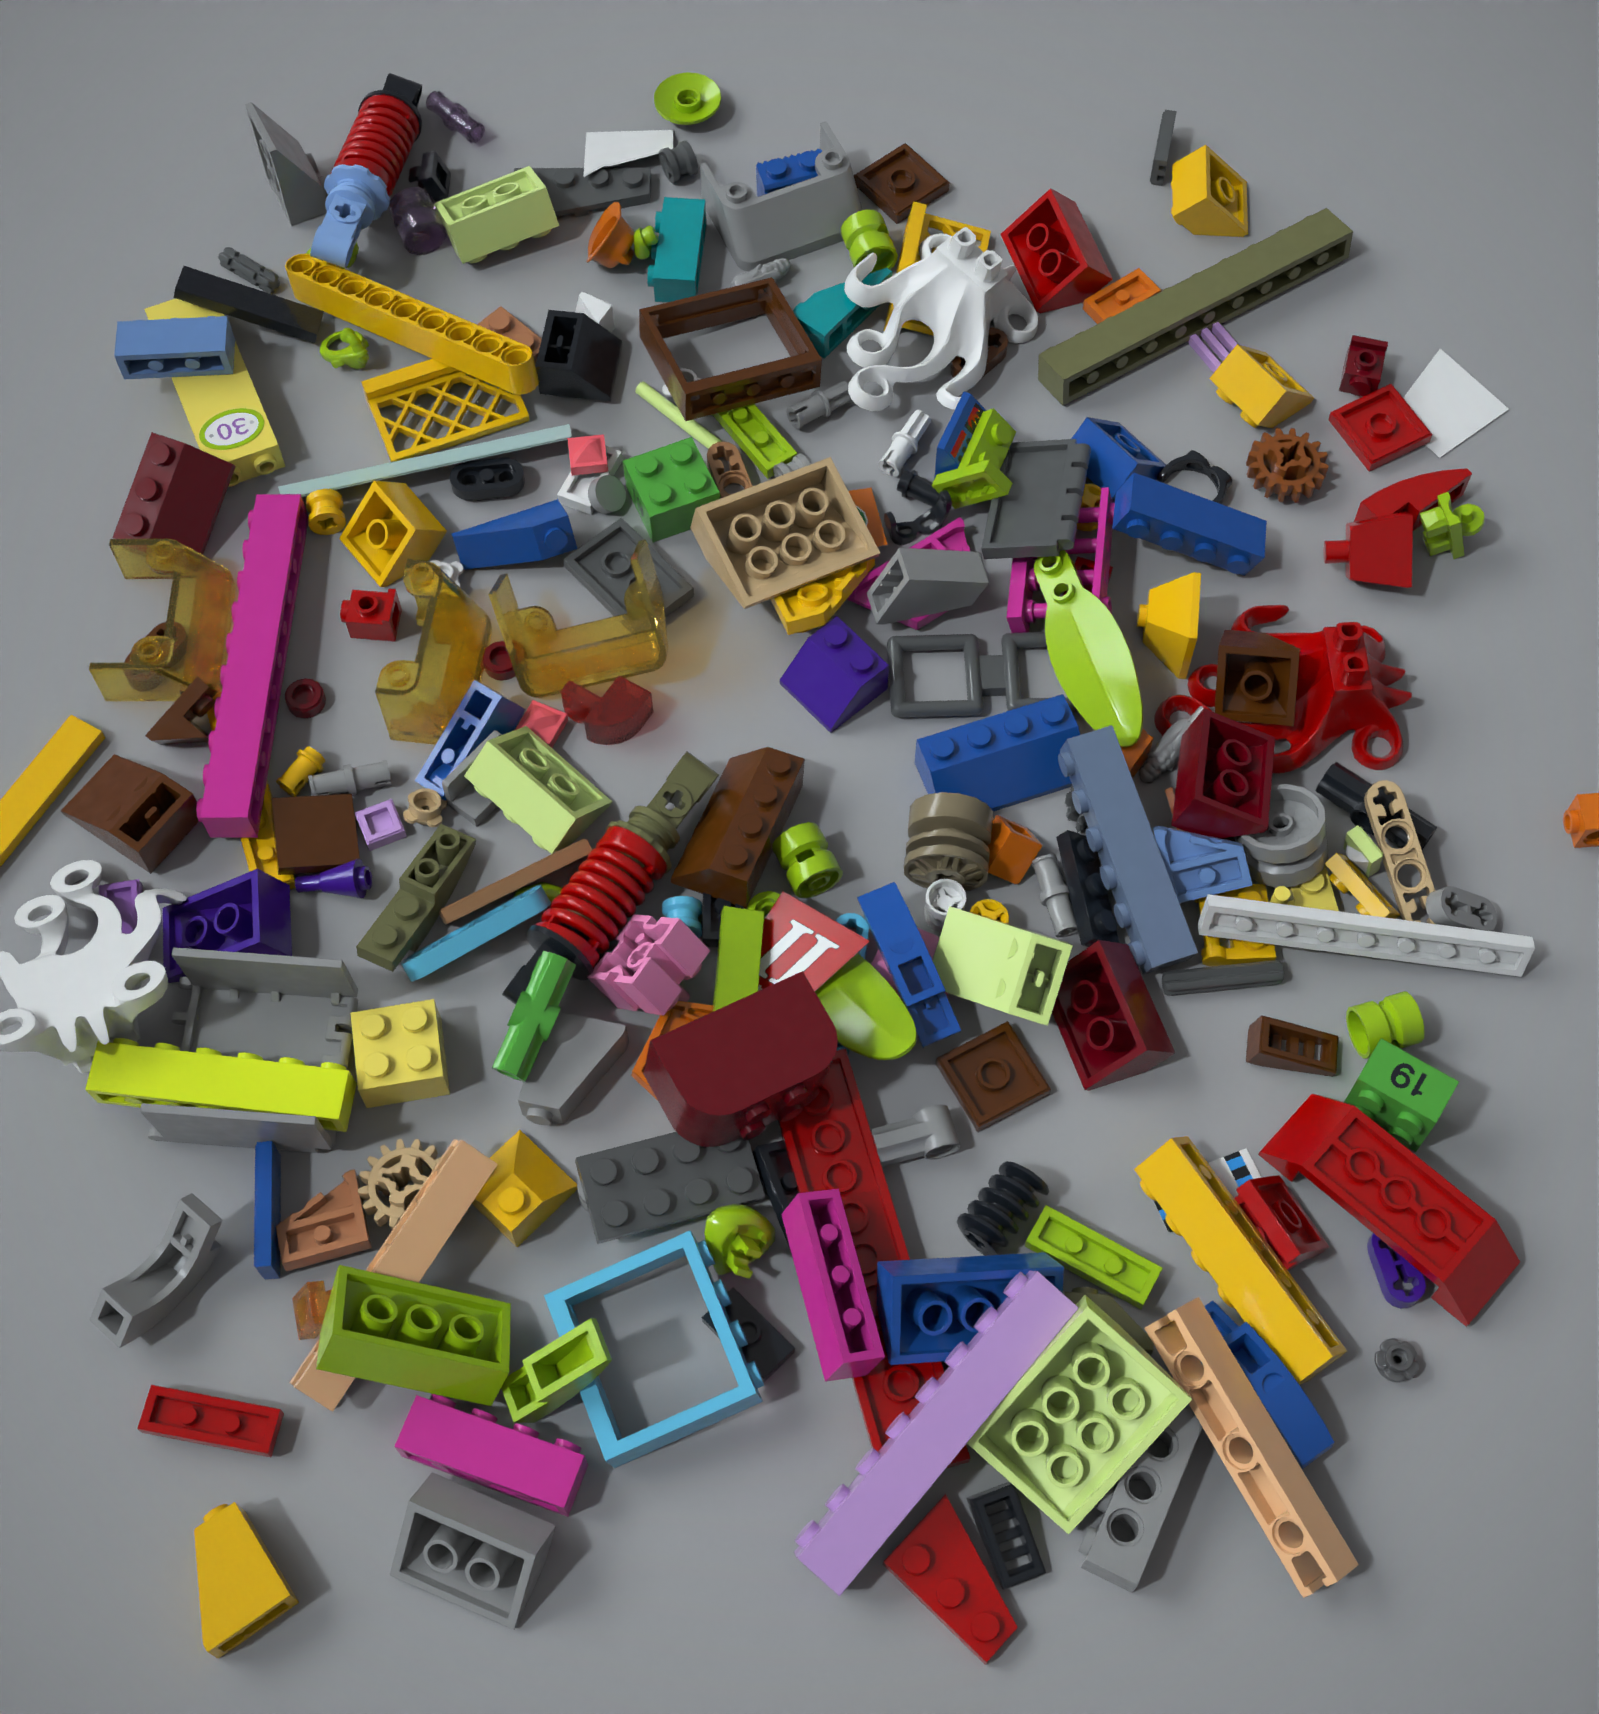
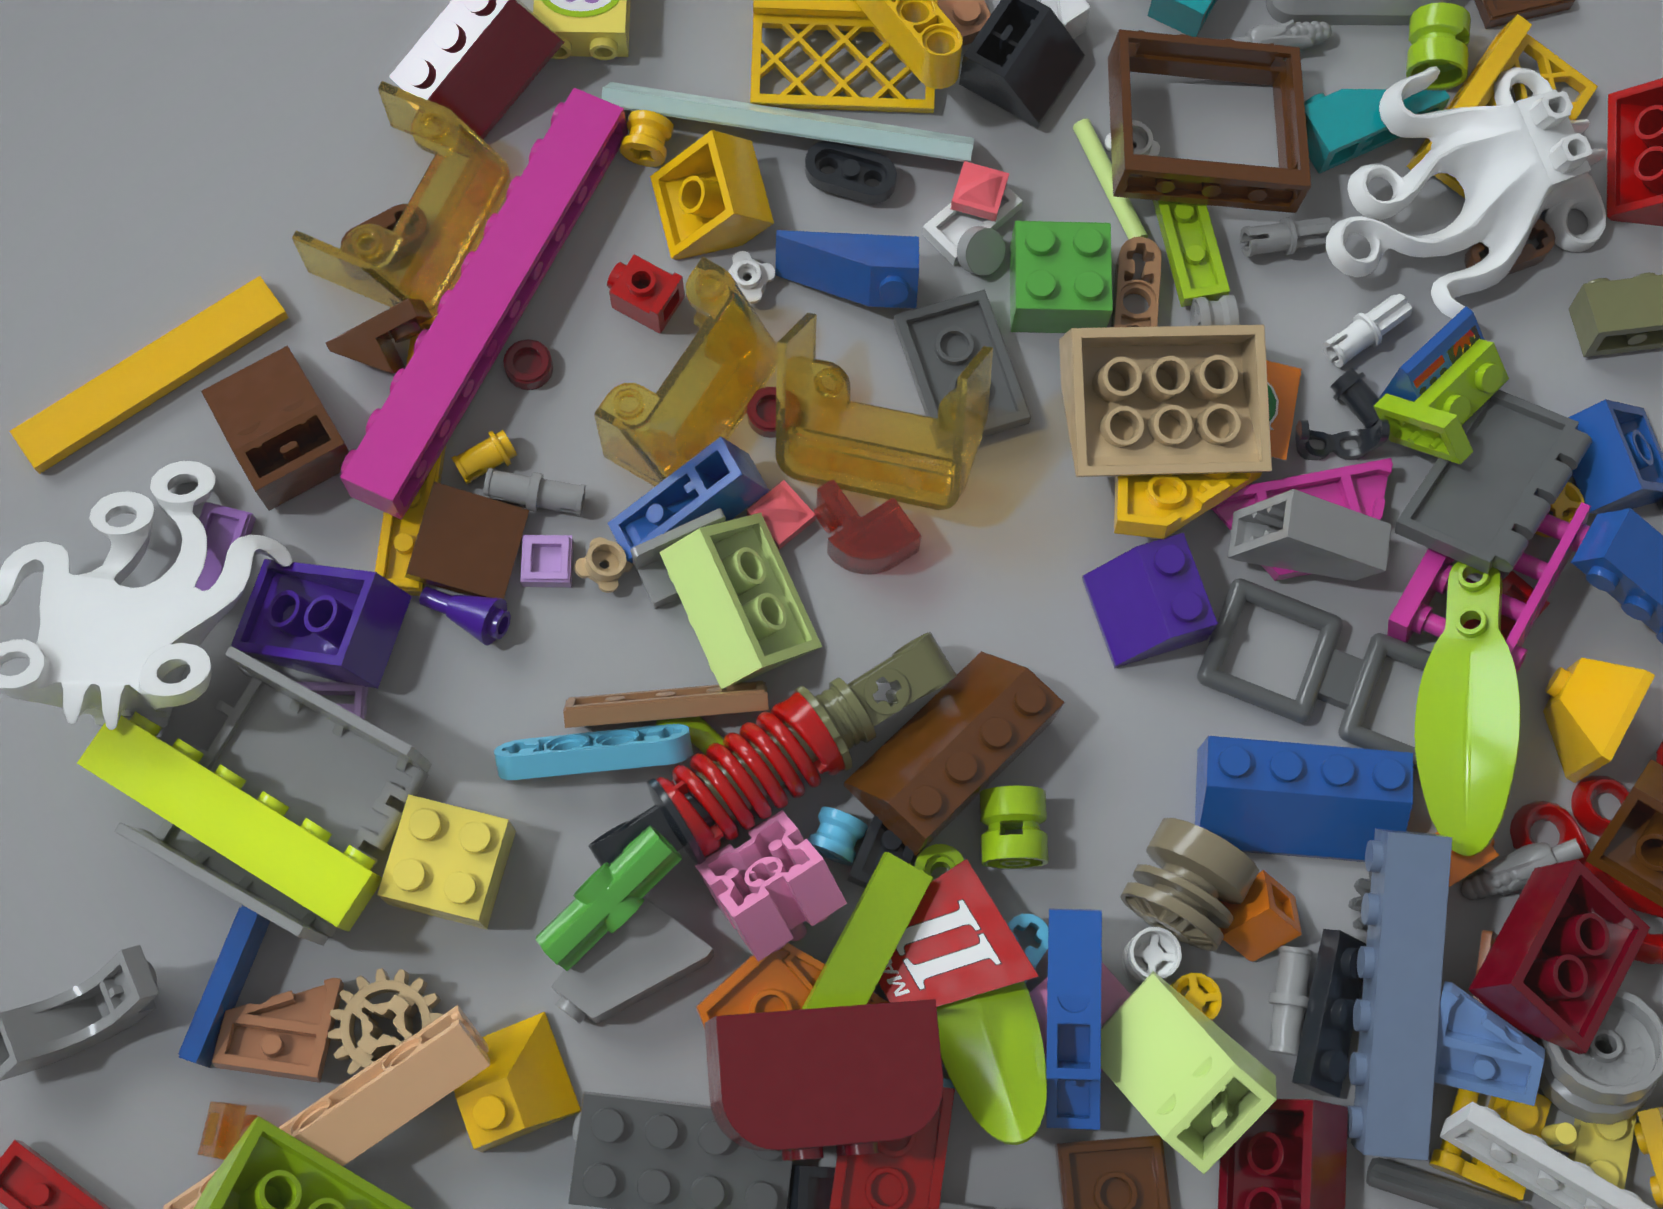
camera: 20 degrees right, 10 degrees up
(422, 893) = (547, 679): olive slope -> none

